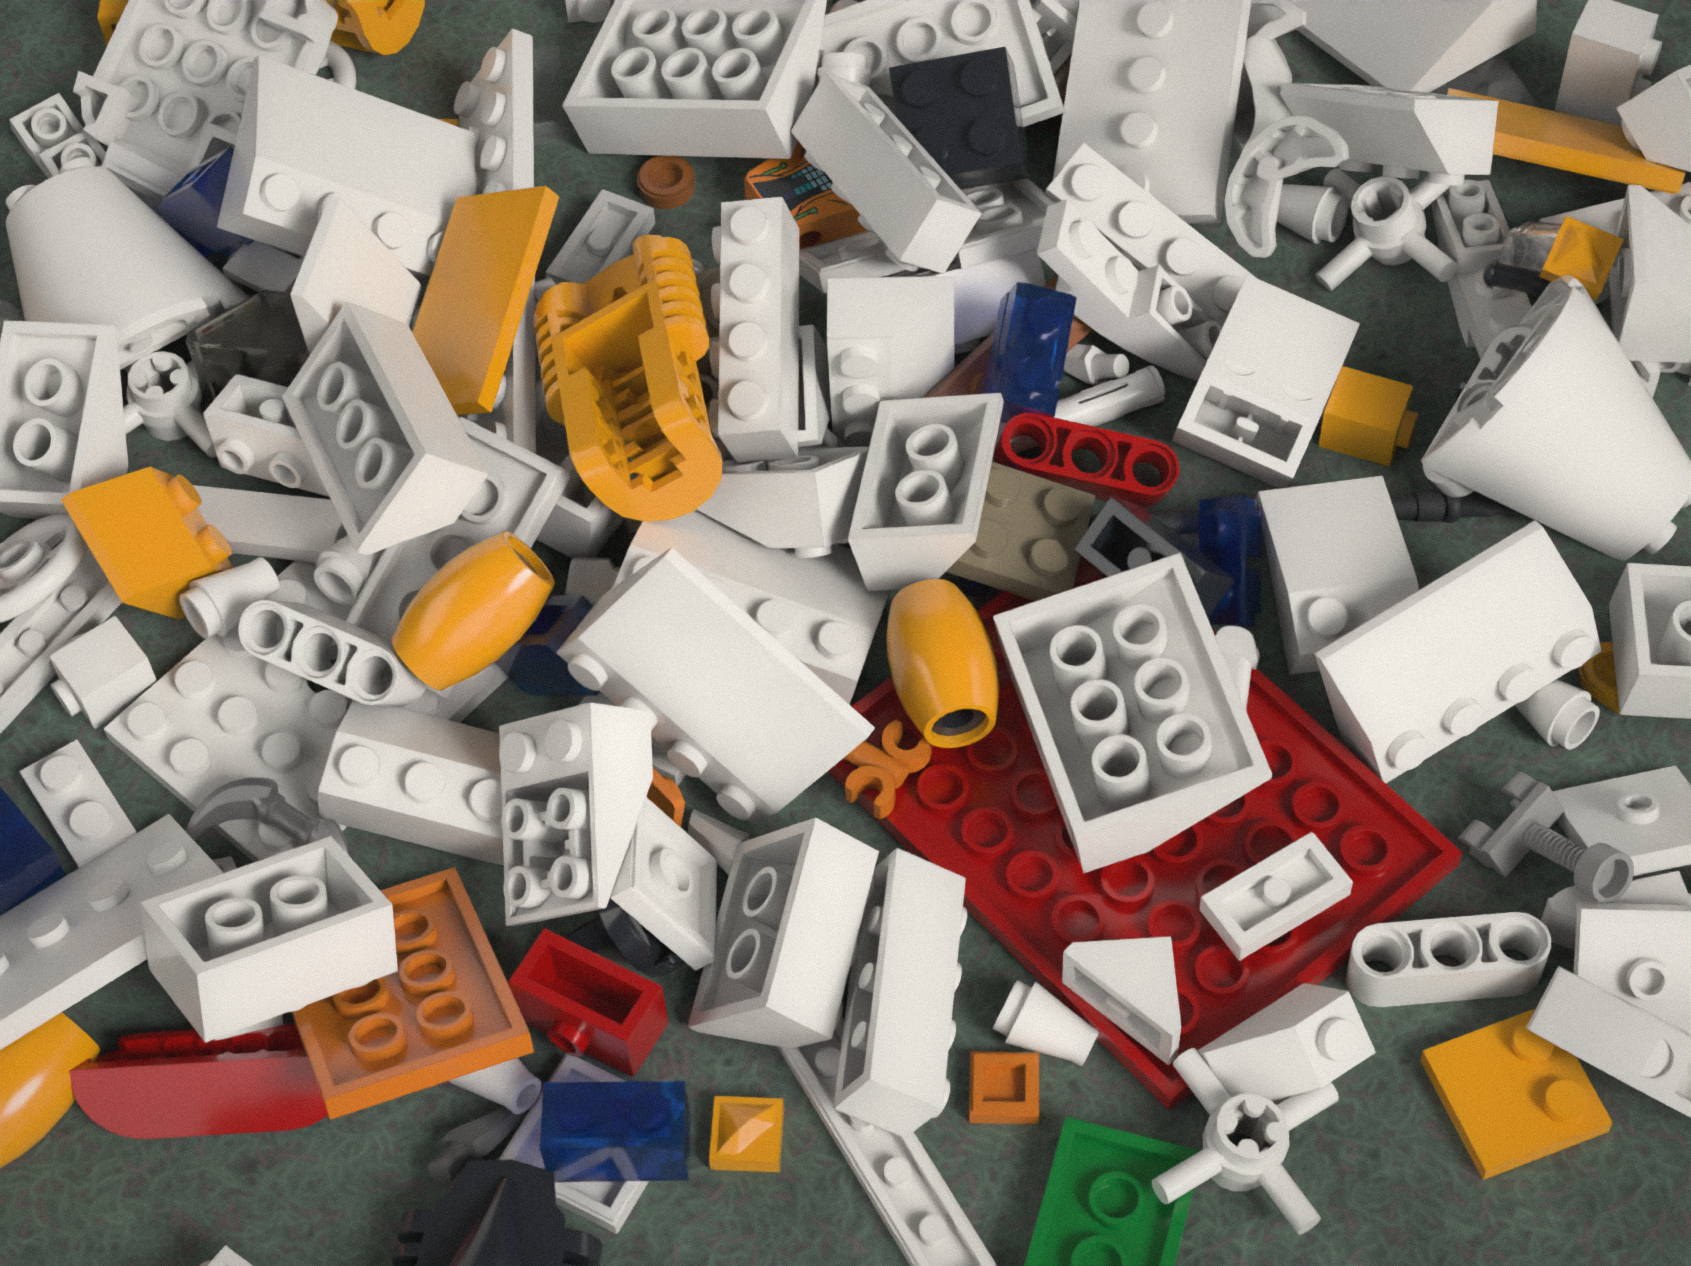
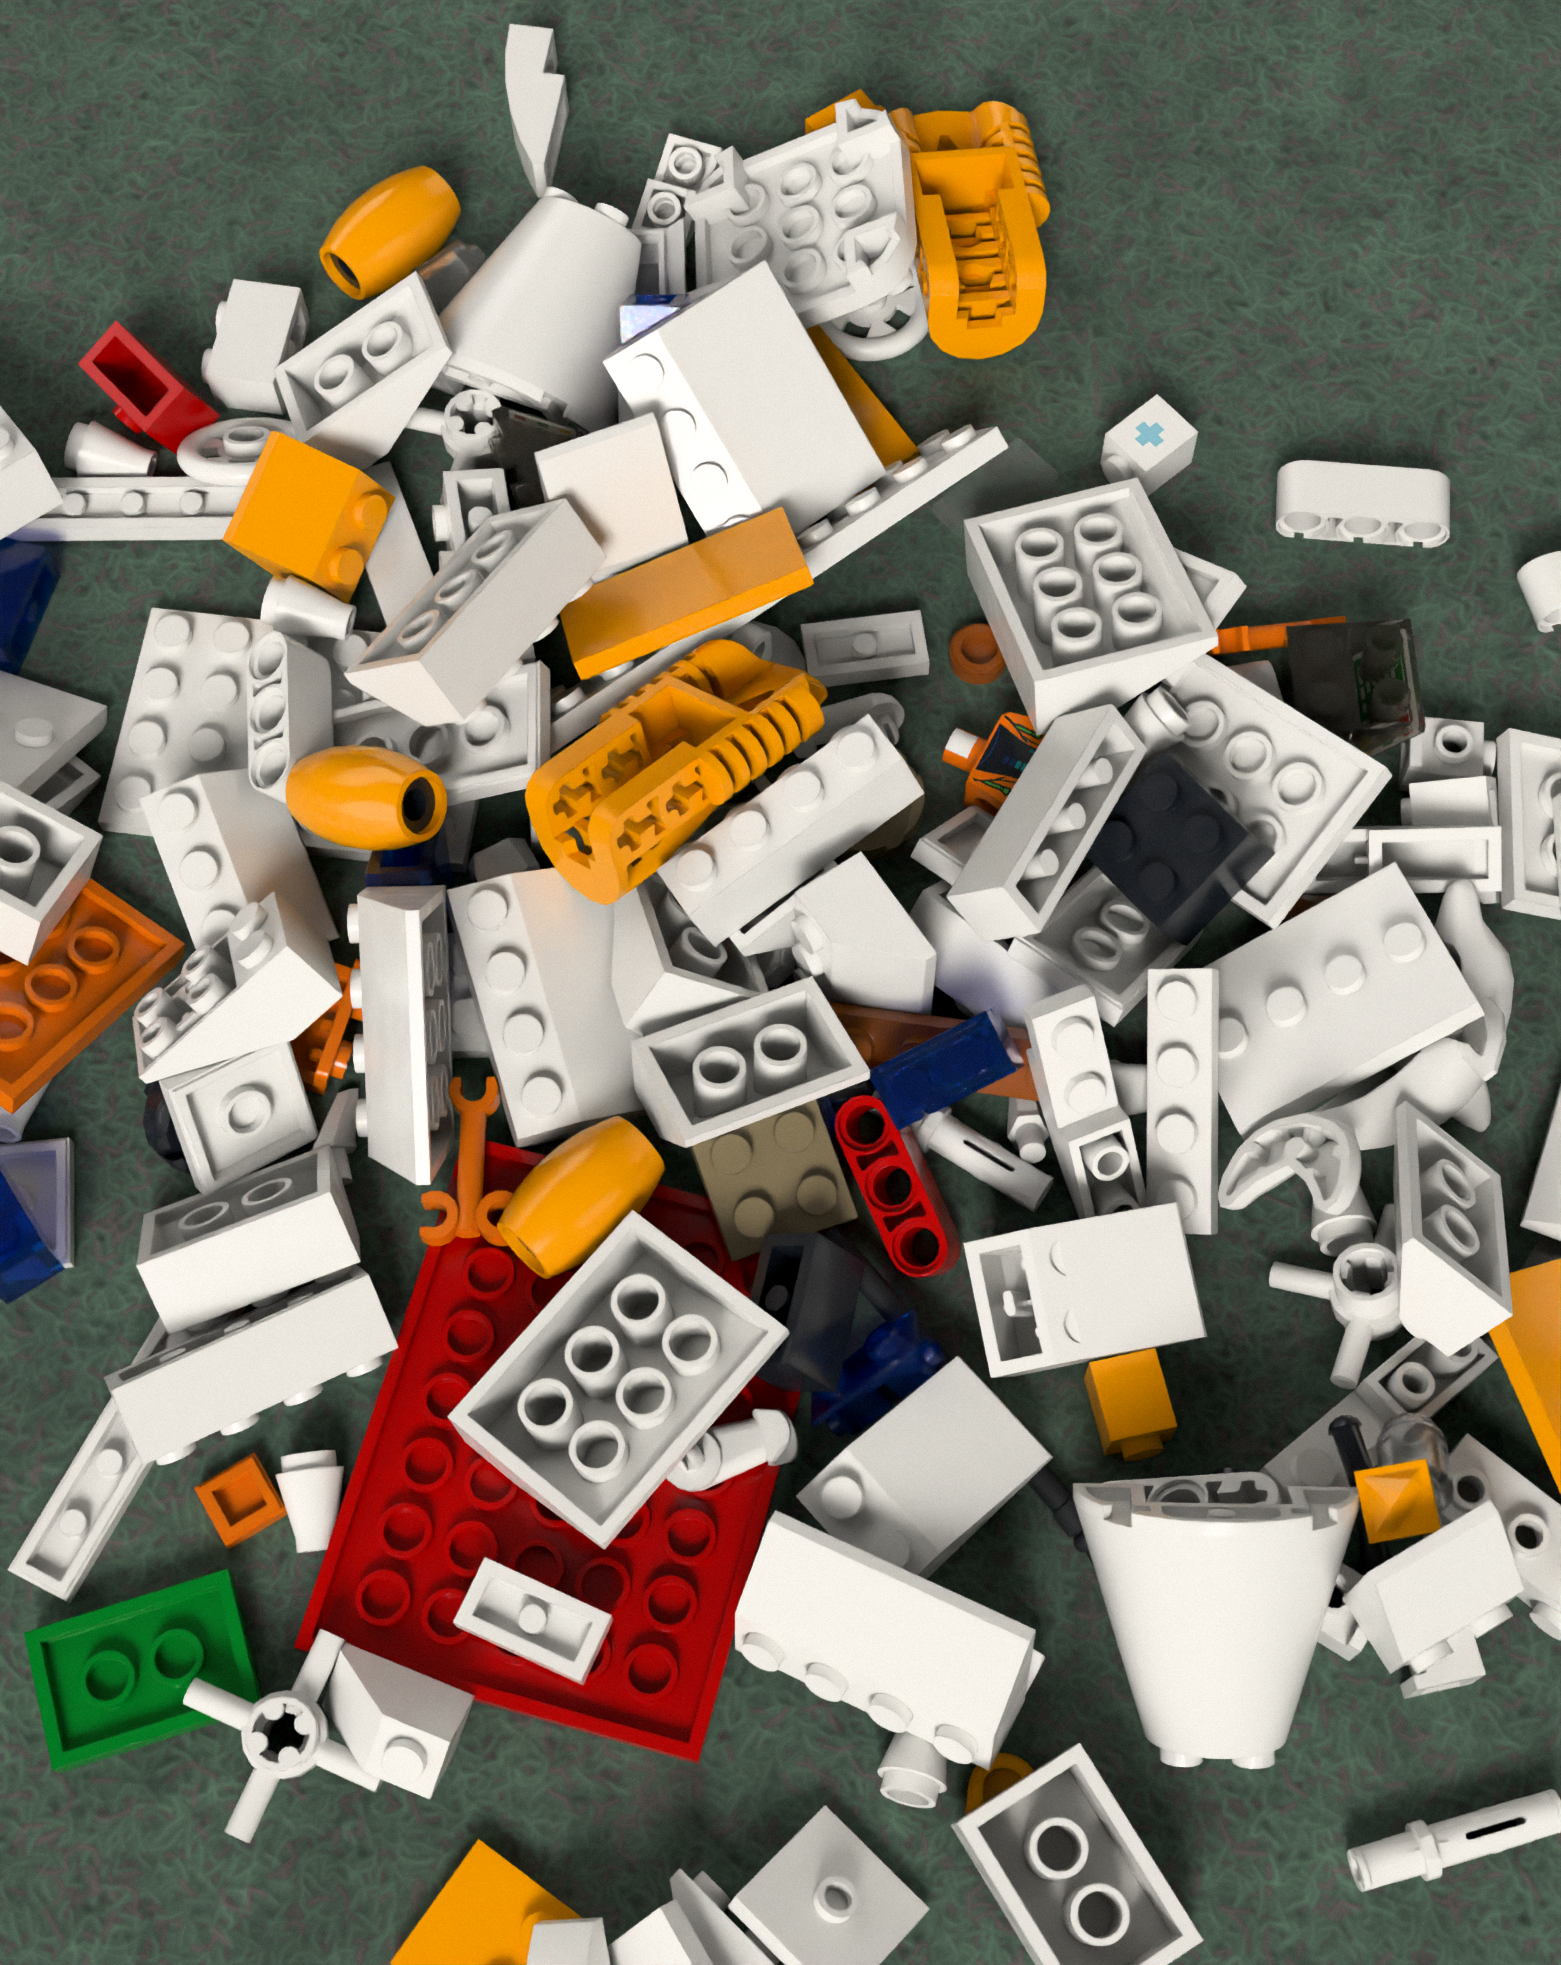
camera: 55 degrees right, 10 degrees up
(77, 803) = (79, 638): white plate -> none
(101, 673) = (195, 570): white brick -> none
(260, 800) = (135, 773): flat silver piece -> none
(589, 1003) = (103, 1126): red brick -> none
(746, 1134) = (80, 1322): light orange tile -> none
(1131, 986) = (362, 1557): white slope -> none
(1471, 940) = (559, 1780): white beam -> none
(1598, 871) = (717, 1901): light grey bar -> none

